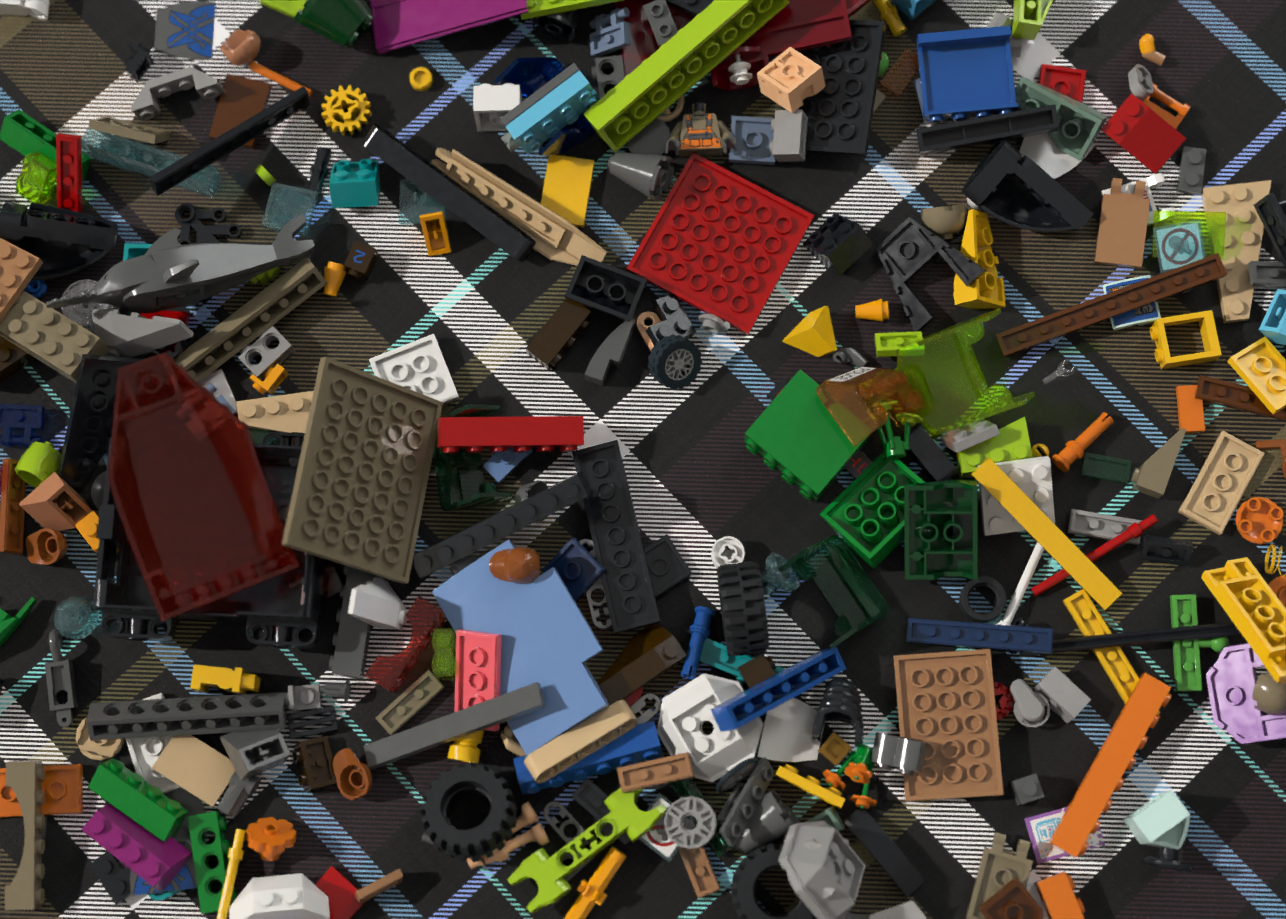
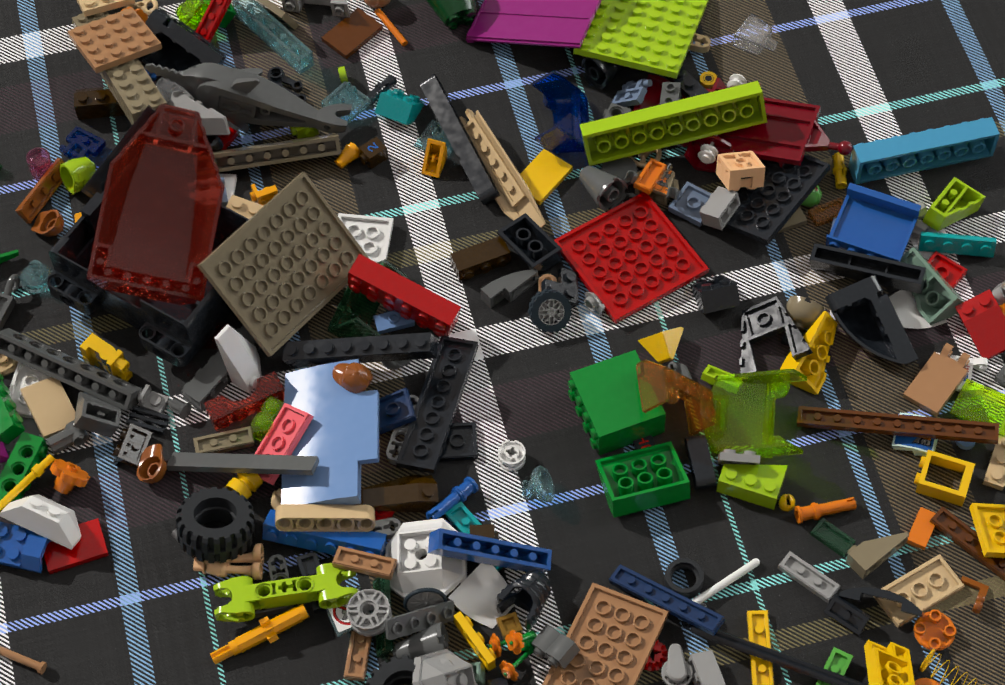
camera: 25 degrees right, 20 degrees down
(55, 504) = (69, 196): nougat slope -> none
(229, 141) = (332, 39): black tile -> none
(270, 357) = (271, 175): light grey brick -> none
(337, 111) = (422, 61): yellow gear -> none
(379, 886) = (121, 545): medium nougat tile -> none
(421, 79) = (485, 67): yellow tile -> none
(492, 103) = (525, 102): white brick -> none
(548, 110) = (563, 109): medium azure piece -> none
(691, 133) = (650, 176): none -> orange tile
(743, 608) = (496, 485): black tyre -> none
(842, 584) = (583, 510): clear green windscreen -> none
(875, 310) = (718, 350): light orange cone -> none
(894, 446) = (675, 419): green plant -> none
(941, 530) = (678, 509): dark green piece -> none
(1034, 479) = (750, 517): white plate -> none
(1046, 533) = (758, 552): yellow tile -> none
(1060, 371) = (839, 458): clear hand -> none
(1061, 45) = (957, 244): none -> teal plate
(1134, 531) = (828, 587): red bar -> none
(1179, 244) = (974, 406): clear light blue piece -> none
(1225, 512) = (857, 595): none -> black slope

